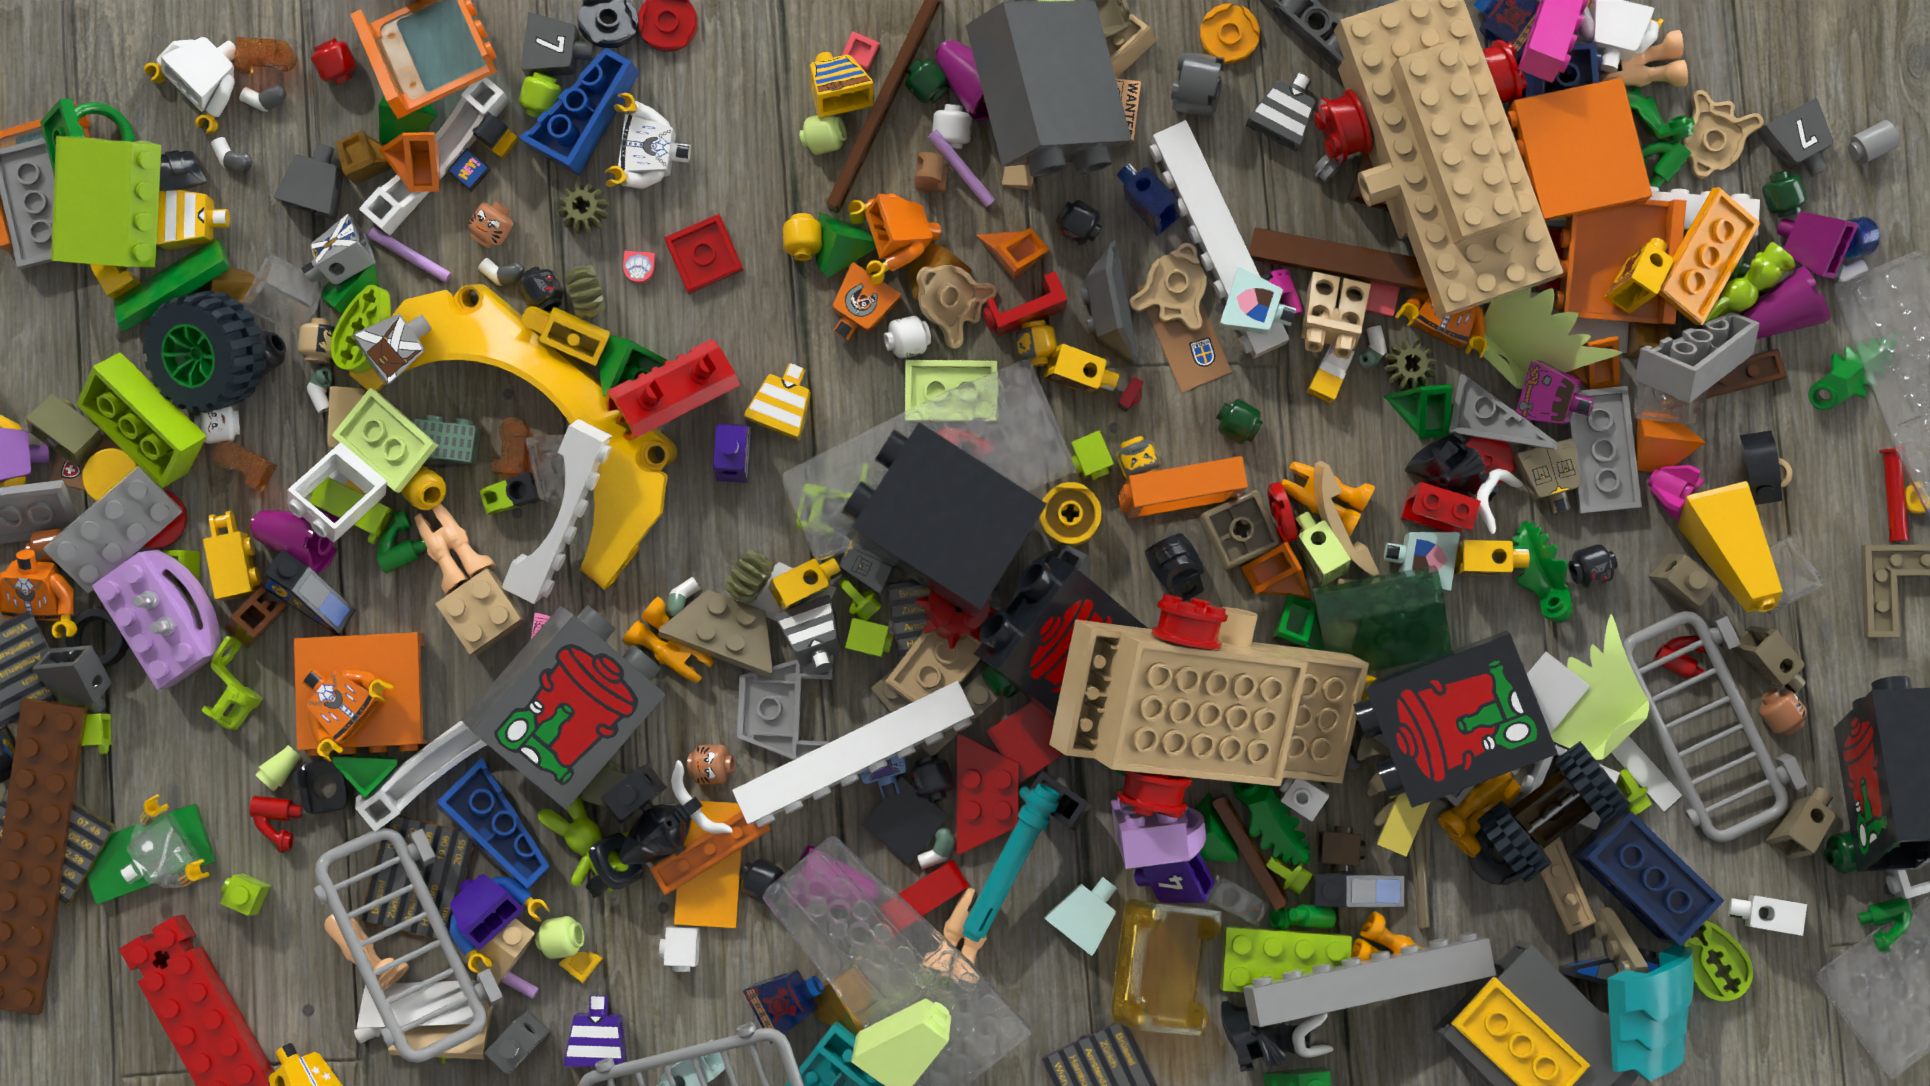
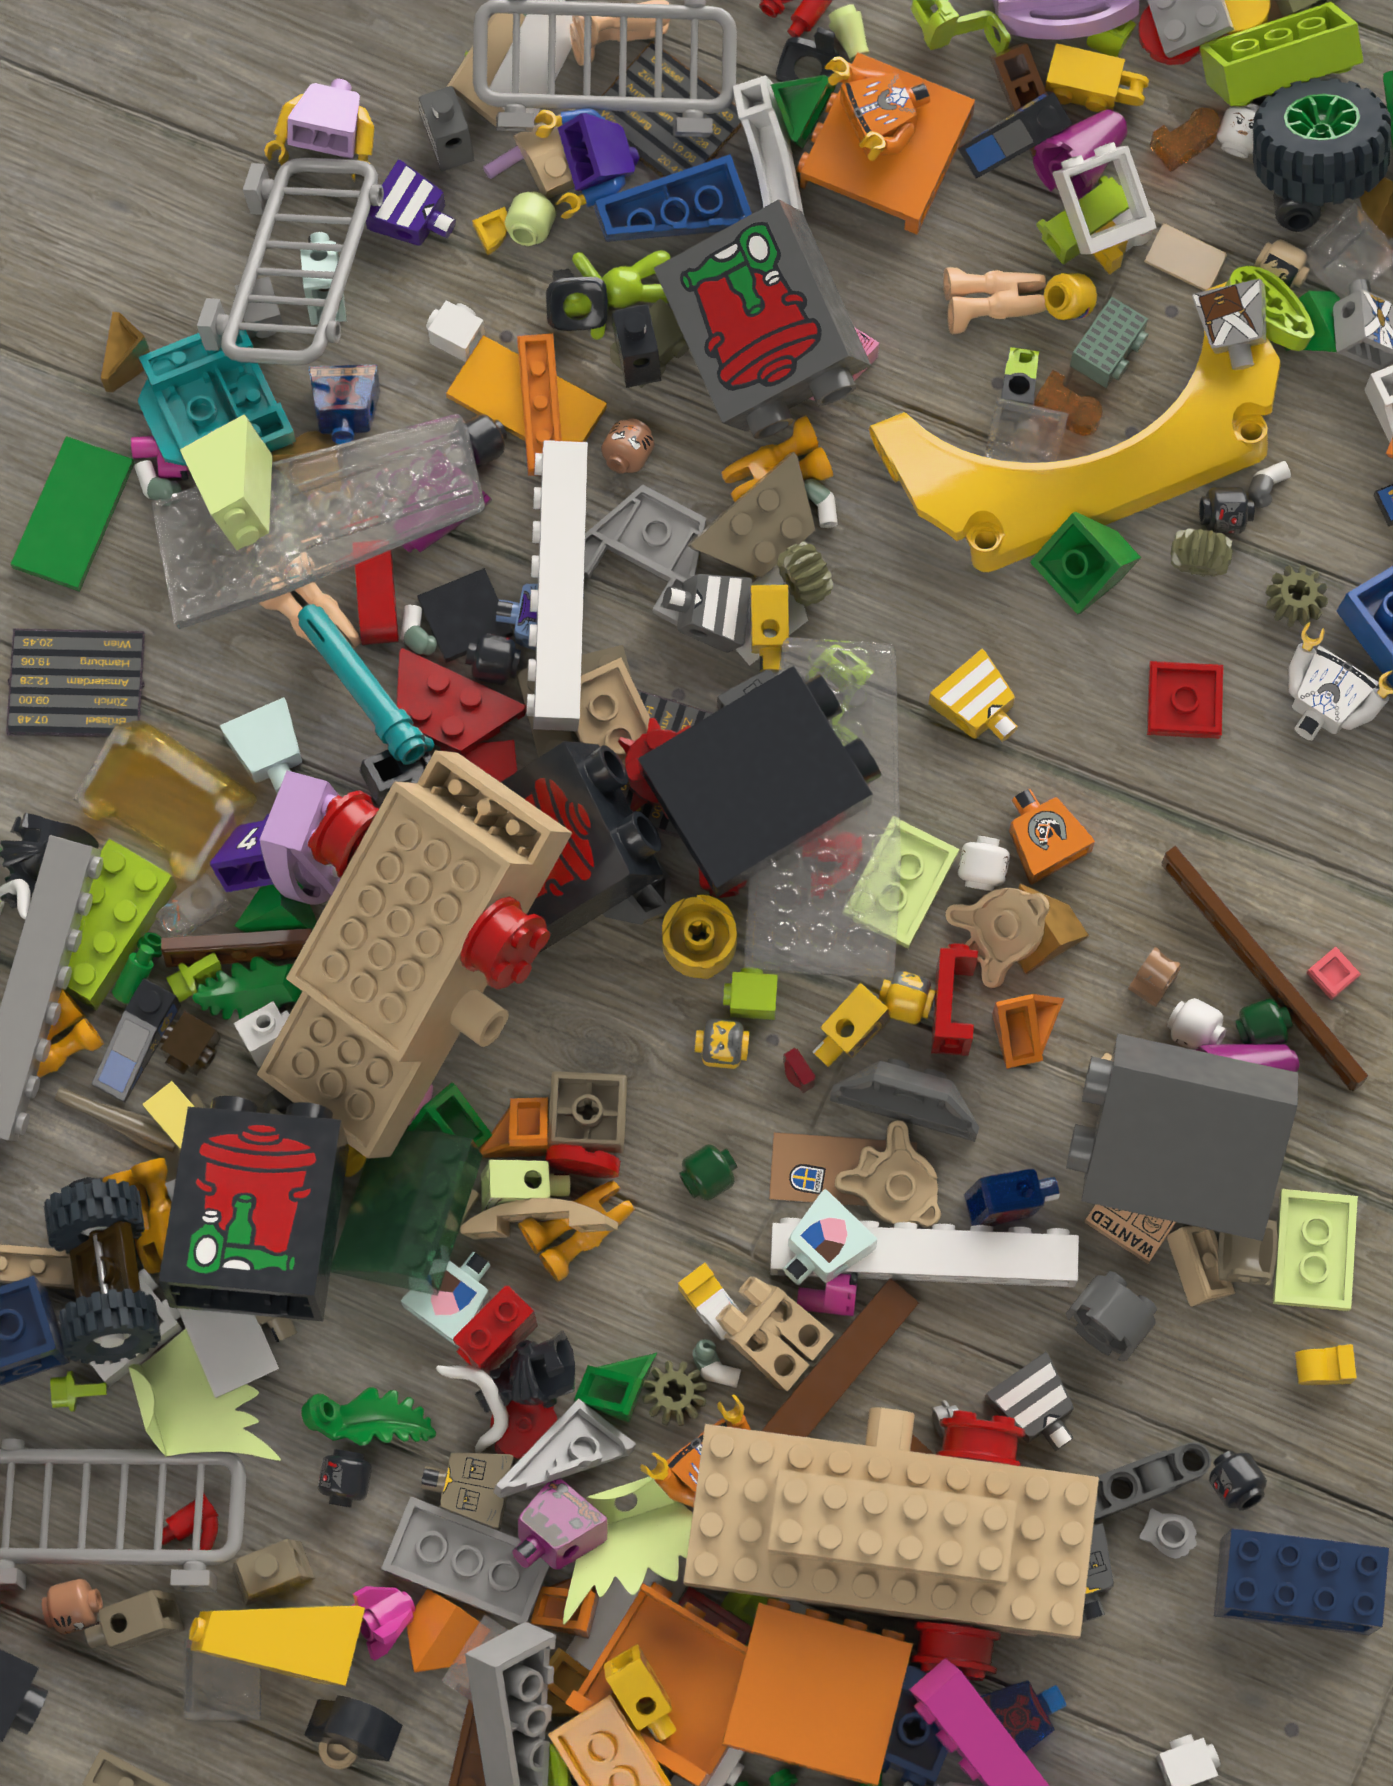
camera: 115 degrees right, 10 degrees down
(318, 388) = (1233, 245): arm -> none
(385, 439) = (1138, 276): yellowish green plate -> none
(401, 554) = (1011, 247): green plant -> none
(409, 255) = (1328, 403): lavender bar -> none
(481, 612) = (908, 294): tan brick -> none
(490, 224) = (1325, 493): nougat head -> none
(567, 333) = (1163, 511): yellow brick -> none
(582, 452) = (1018, 452): white arch -> none
(639, 266) = (1204, 626): tile -> none
(666, 826) = (585, 364): black helmet -> none
(672, 389) = (1045, 584): red piece -> none
(732, 452) = (951, 622): dark purple torso -> none
(802, 236) = (1151, 807): yellow head -> none
(823, 134) = (1257, 885): yellowish green head -> none
(839, 85) = (1303, 921): yellow torso -> none
(841, 245) = (1123, 846): green slope -> none
(863, 603) = (716, 681): lime piece -> none
(869, 638) = (676, 664): lime brick -> none
(897, 230) = (1105, 905): orange torso -> none
(961, 168) = (1144, 1011): lavender bar -> none
(1079, 222) = (1020, 1109): black head -> none
(1175, 563) = (587, 1025): black piece -> none
(1183, 487) = (662, 1053): orange window -> none
(1229, 33) = (1157, 1391): light orange tile -> none
(1382, 299) = (764, 1401): coral tile -> none
(1475, 558) = (421, 1346): yellow torso -> none
(1646, 773) = (90, 1423): white sticker -> none

